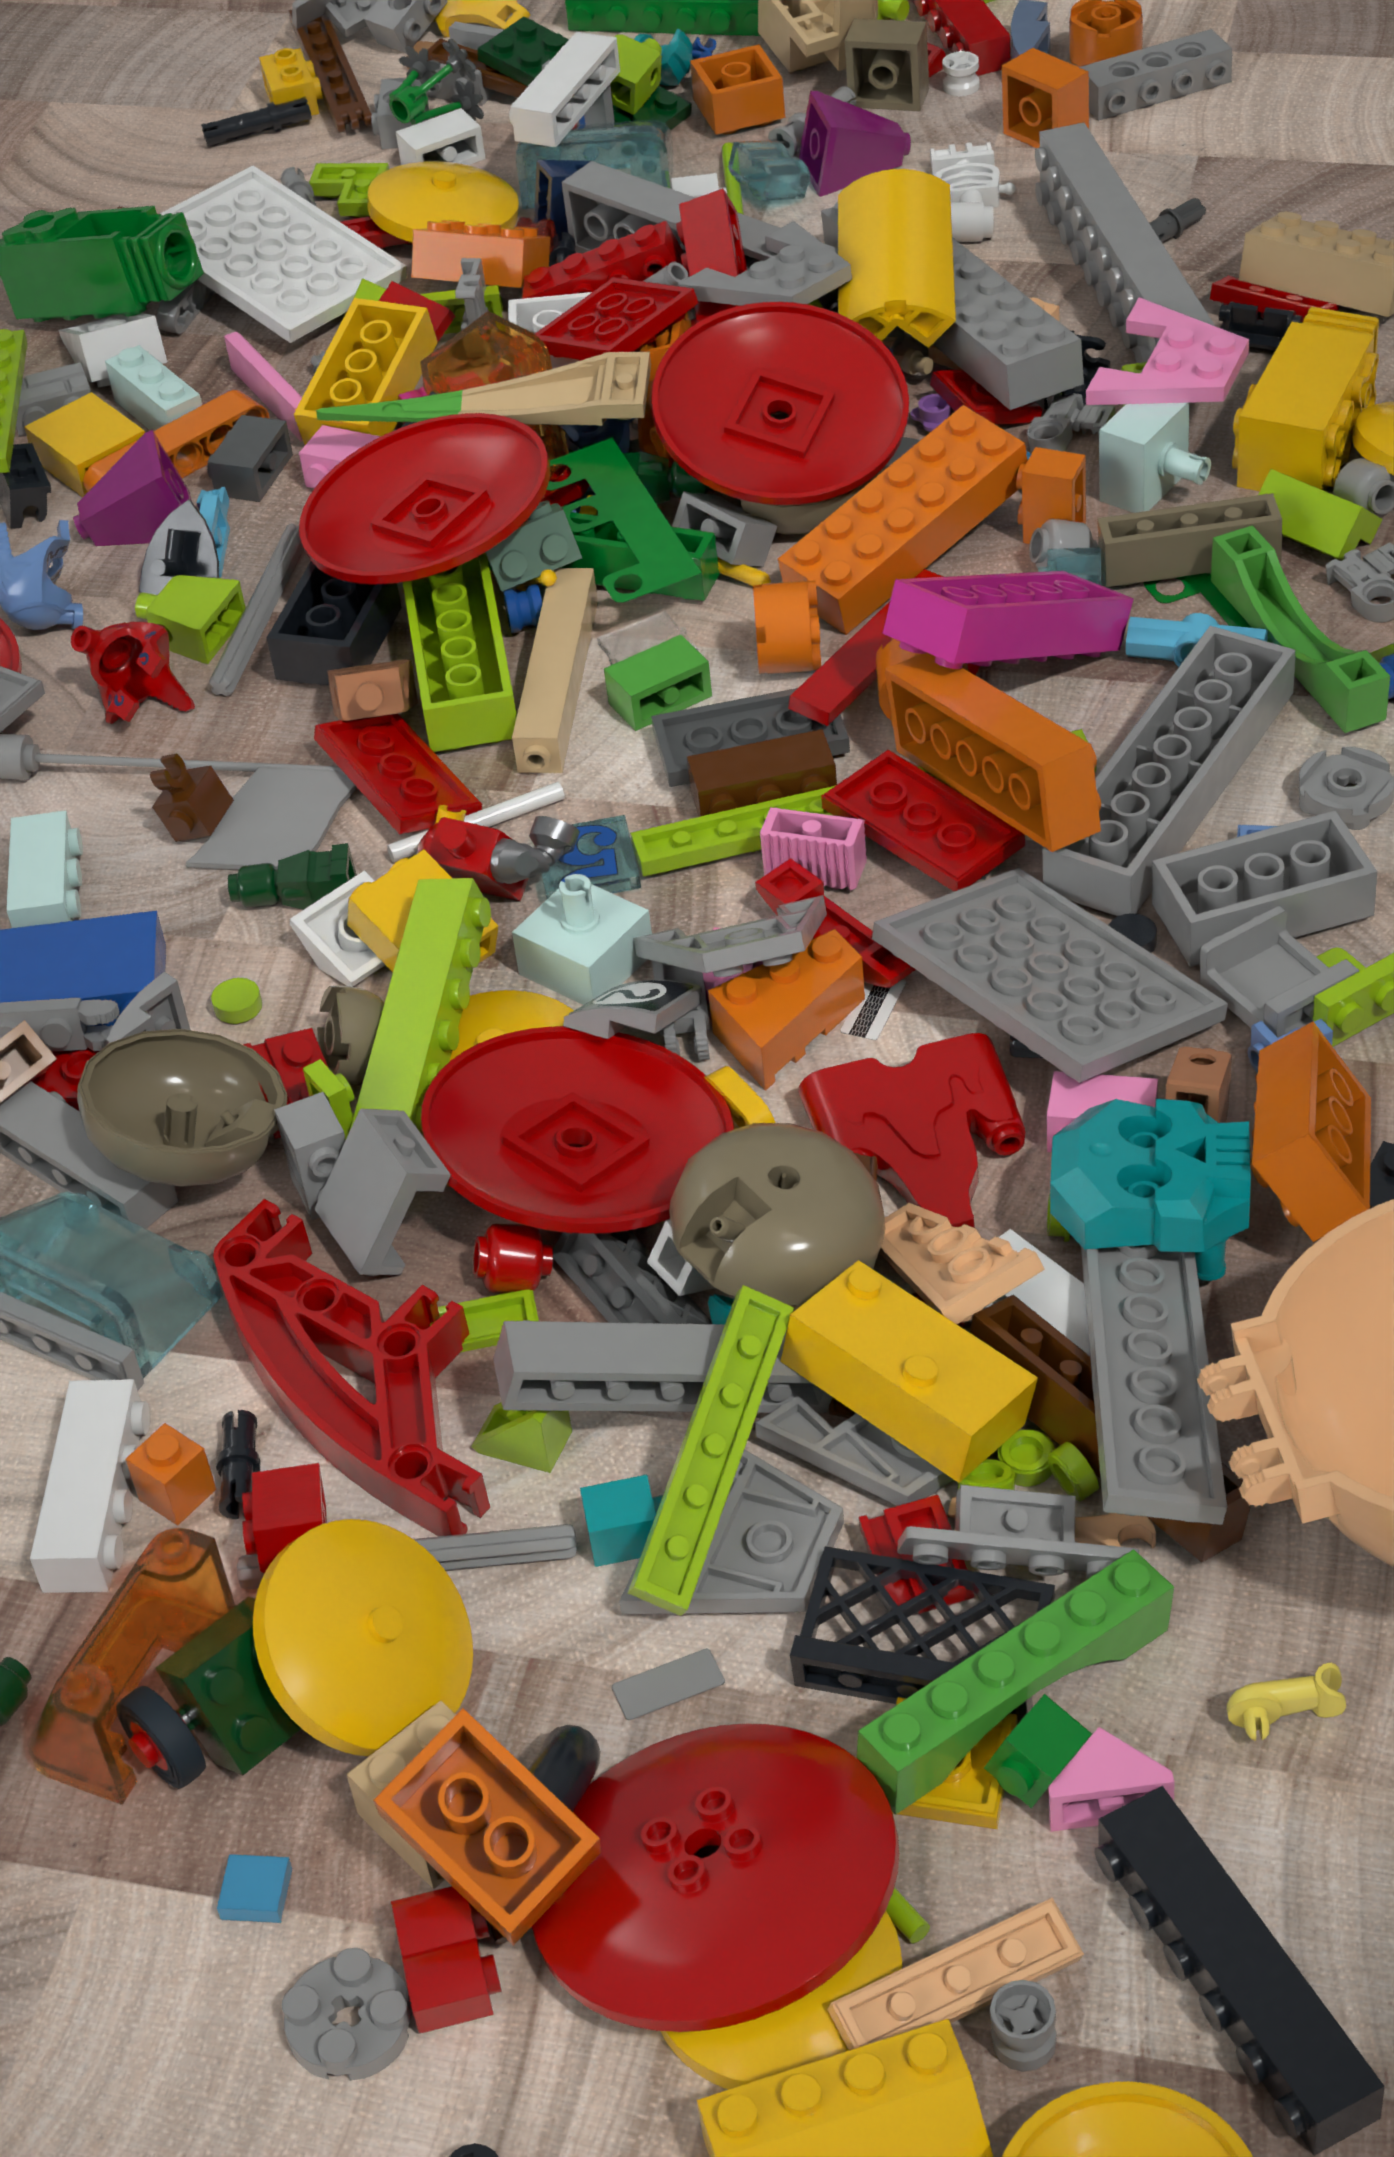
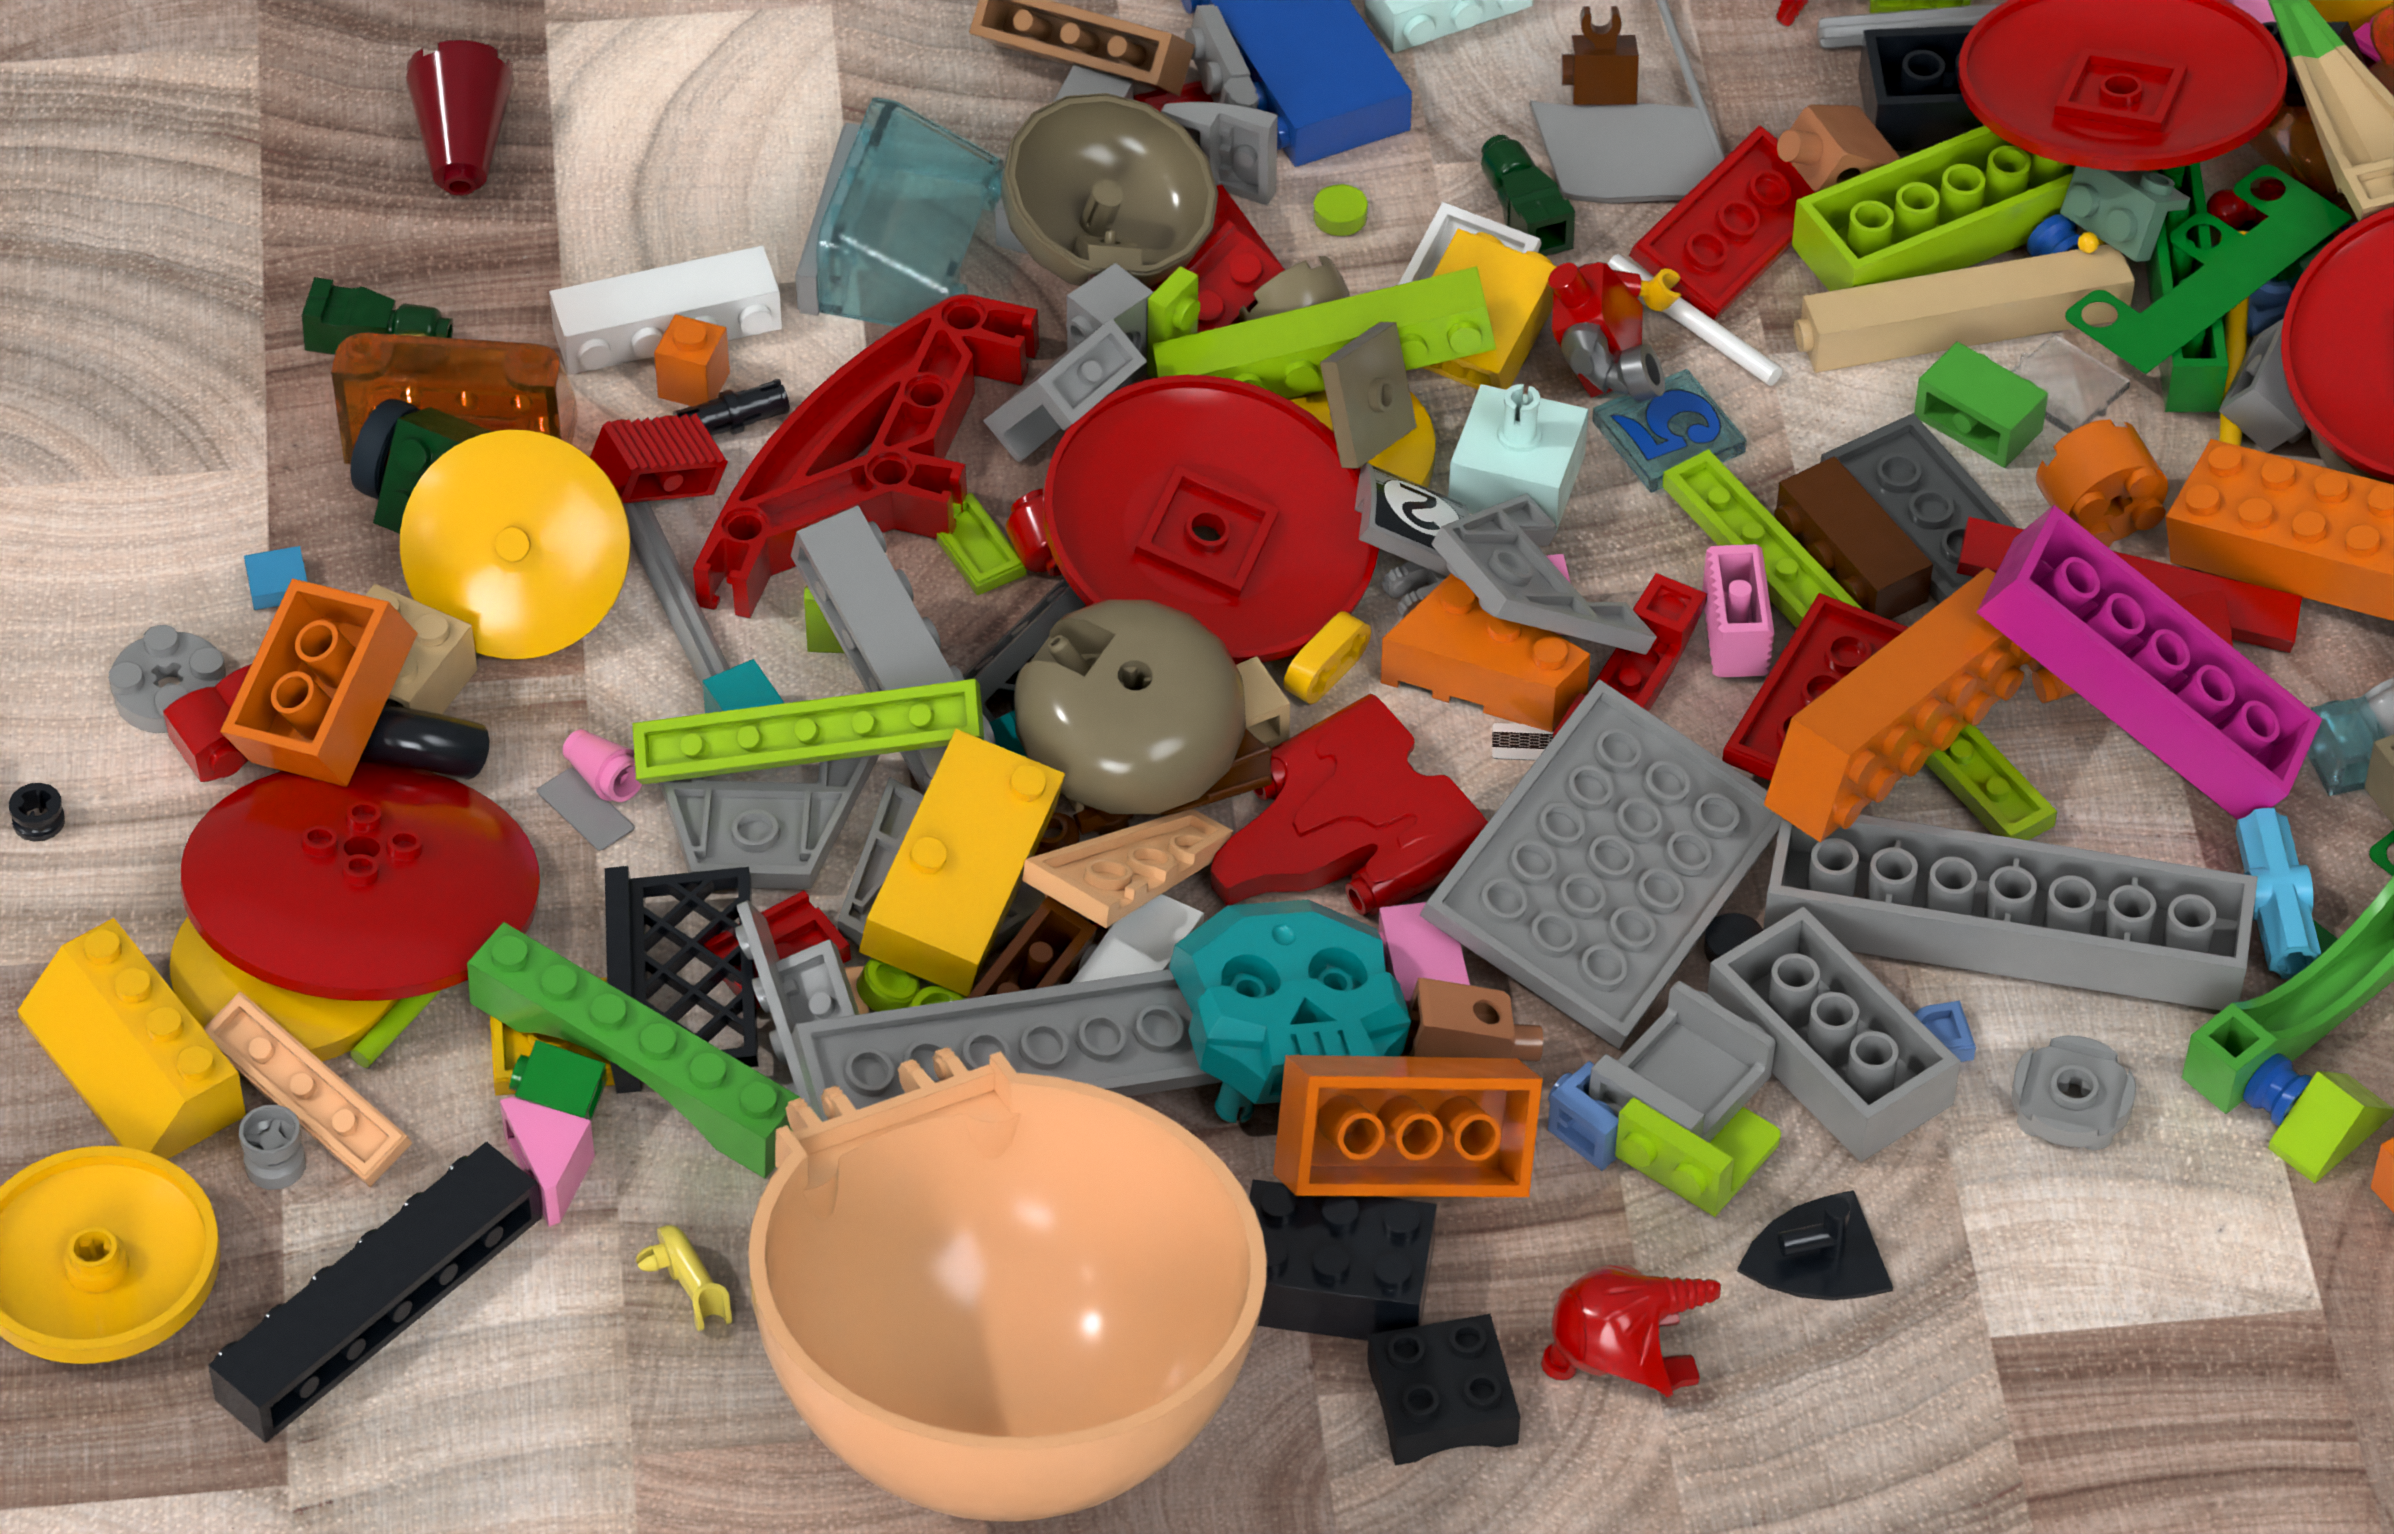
camera: 65 degrees right, 5 degrees up
(511, 983) = (1368, 395): none -> dark tan plate
(634, 1648) = (603, 765): none -> bright pink cone

